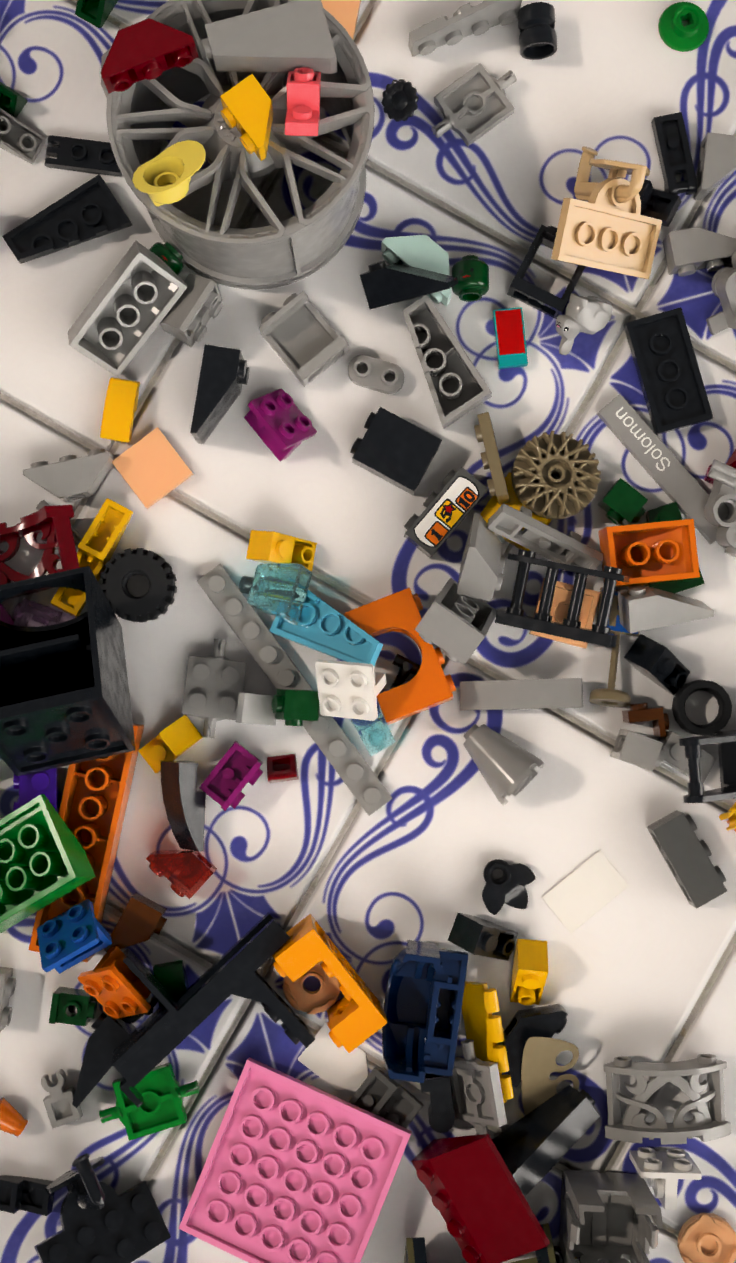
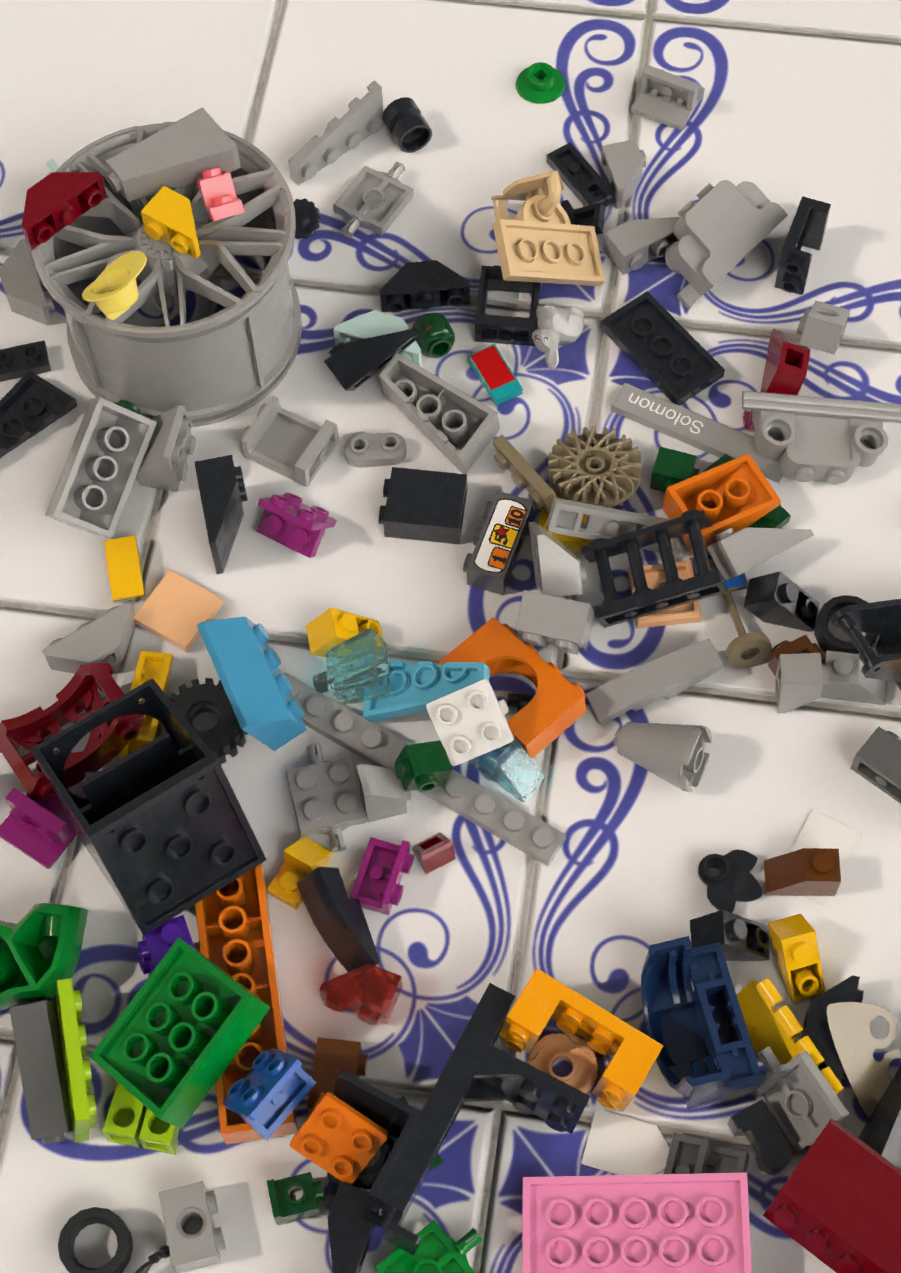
camera: 15 degrees left, 25 degrees down
(185, 569) = (253, 680): none -> dark azure slope
(482, 222) = (424, 287): none -> black slope
(564, 907) = (803, 873): none -> reddish brown slope

